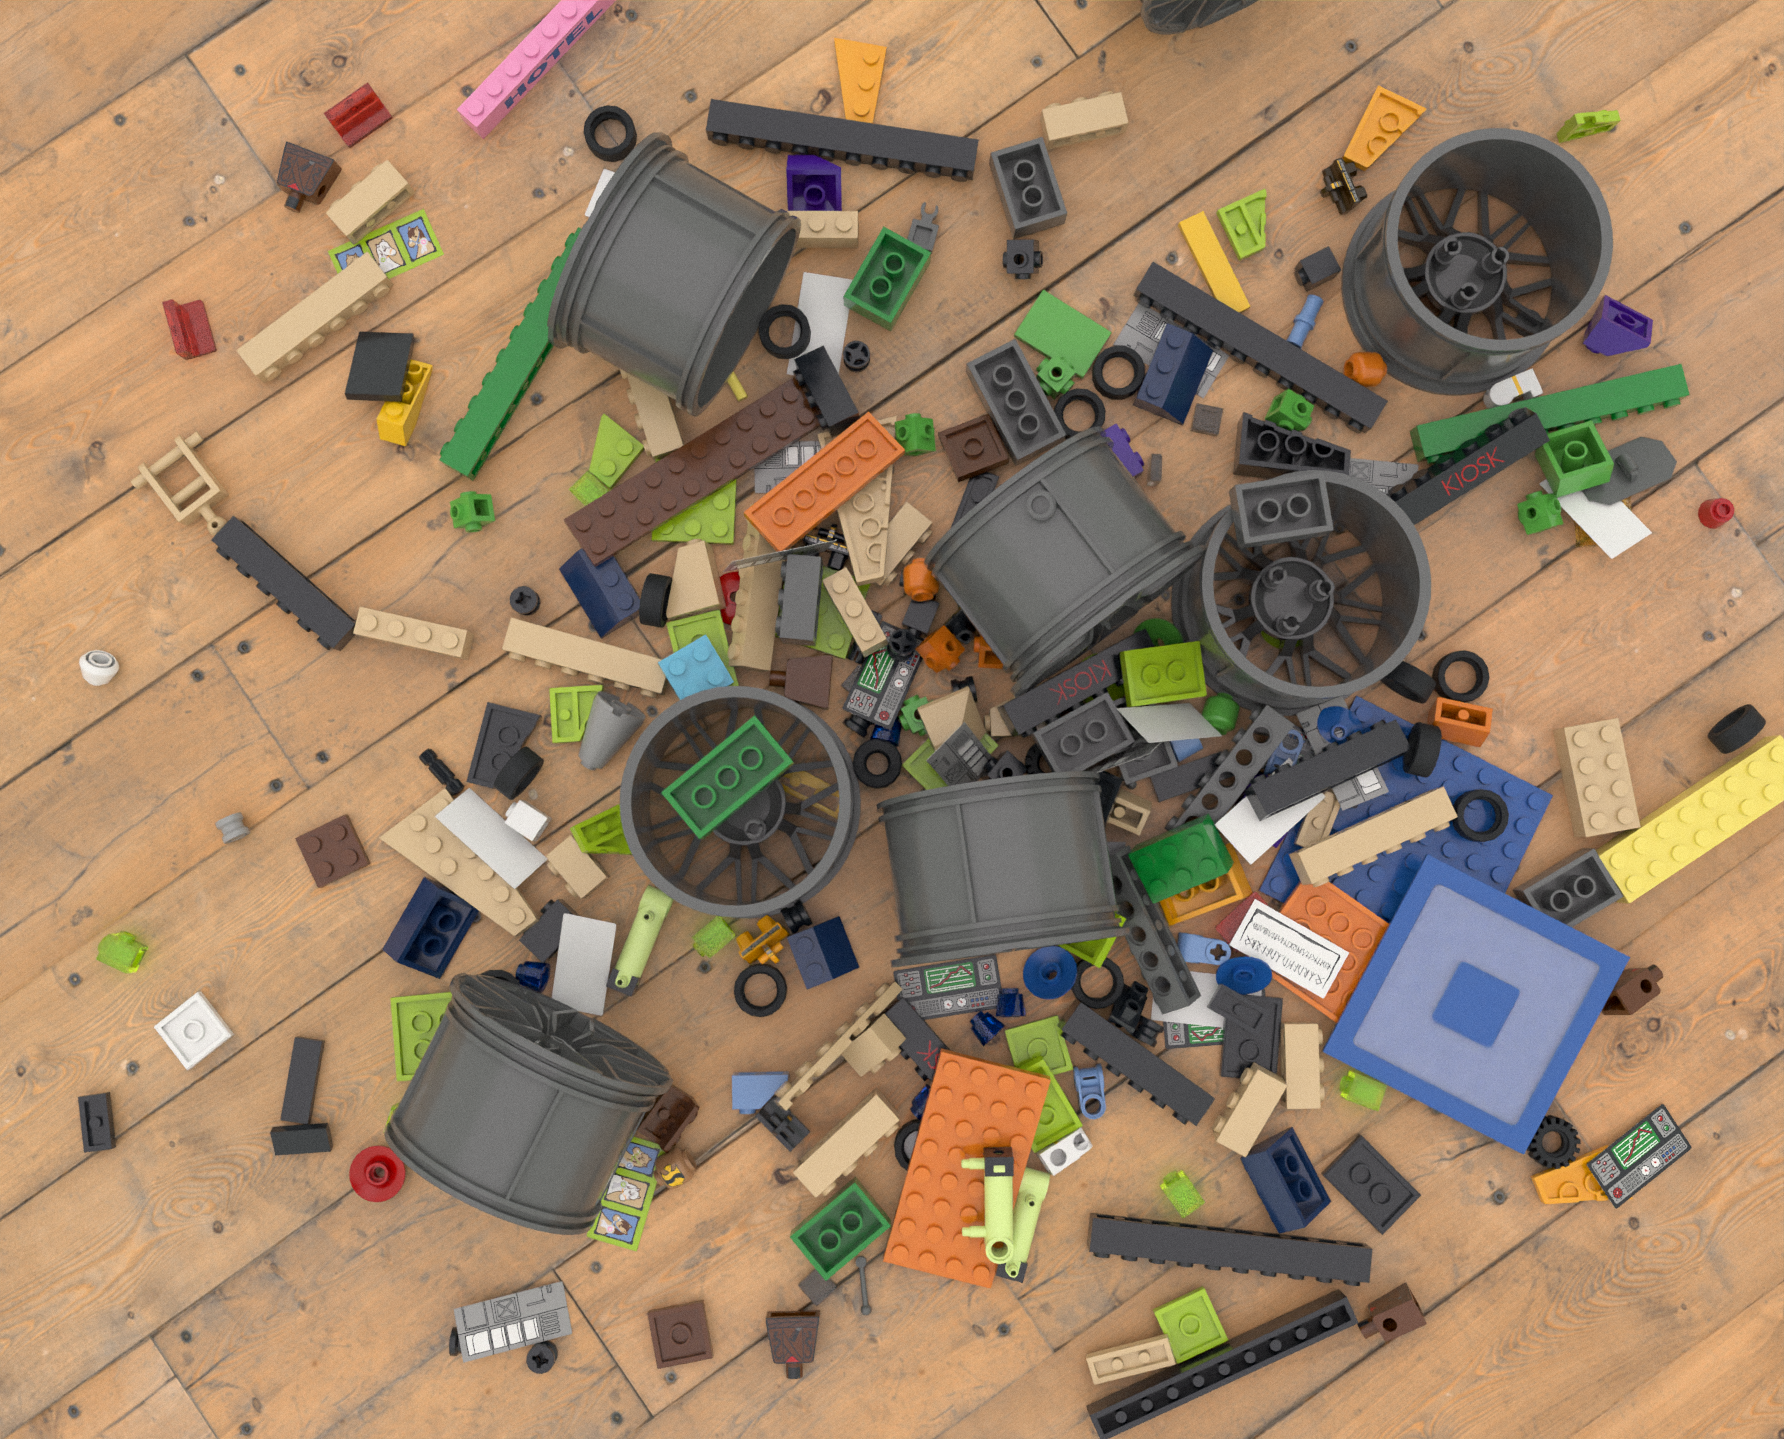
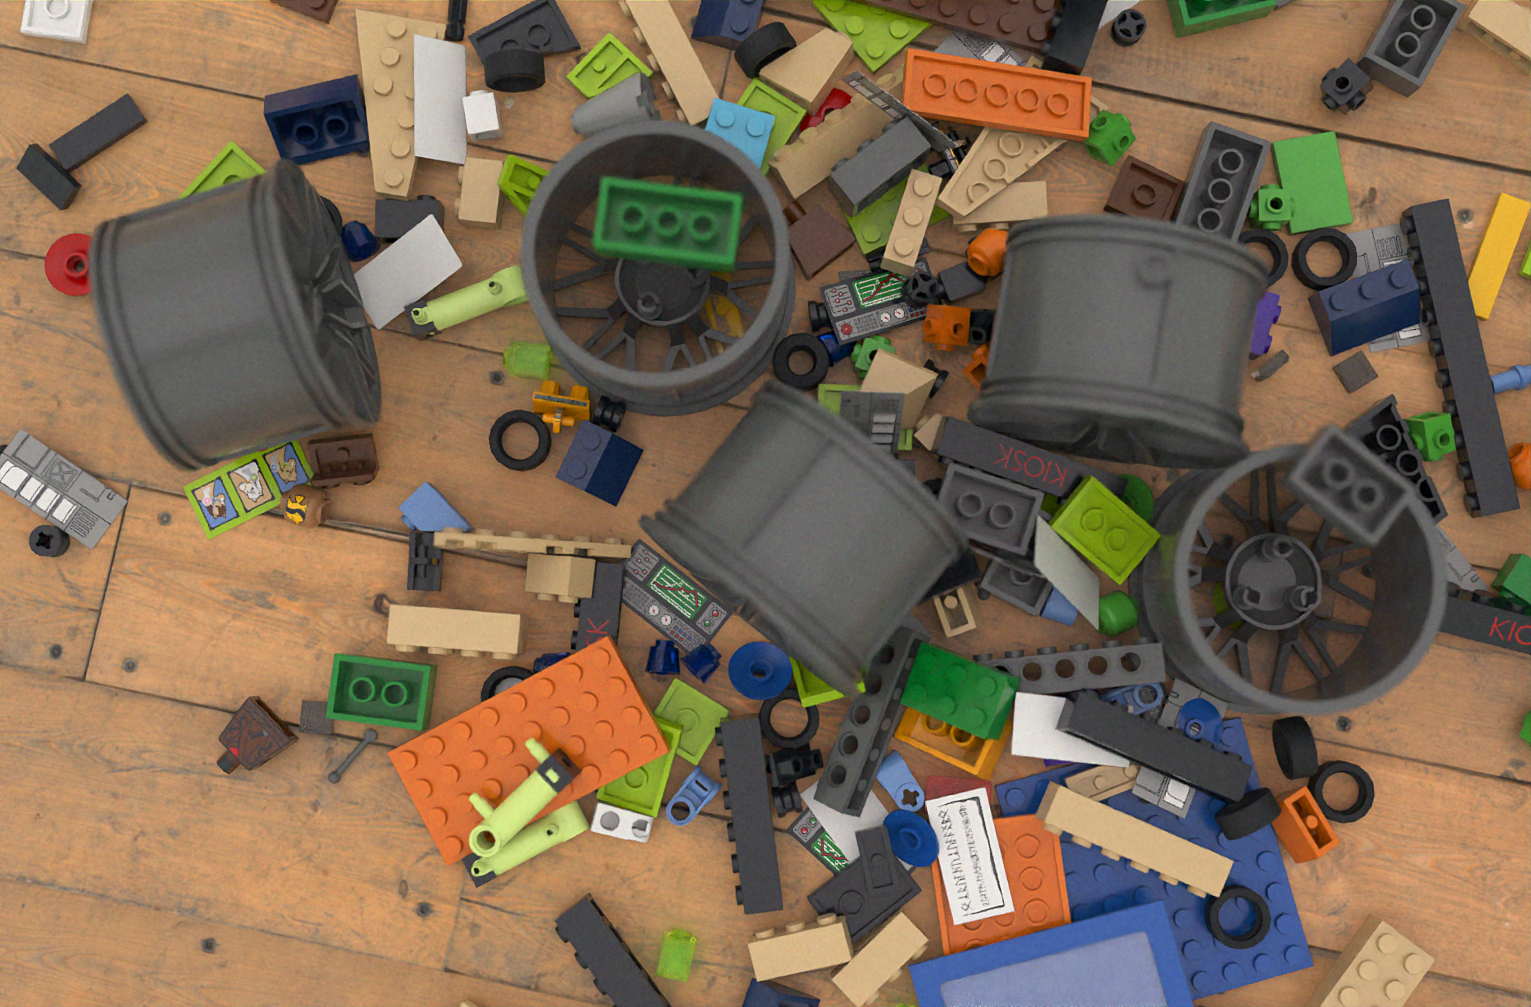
camera: 50 degrees right, 0 degrees up
(680, 1334) = (172, 639): reddish brown plate -> none
(1185, 777) = (1032, 634): black tile -> none

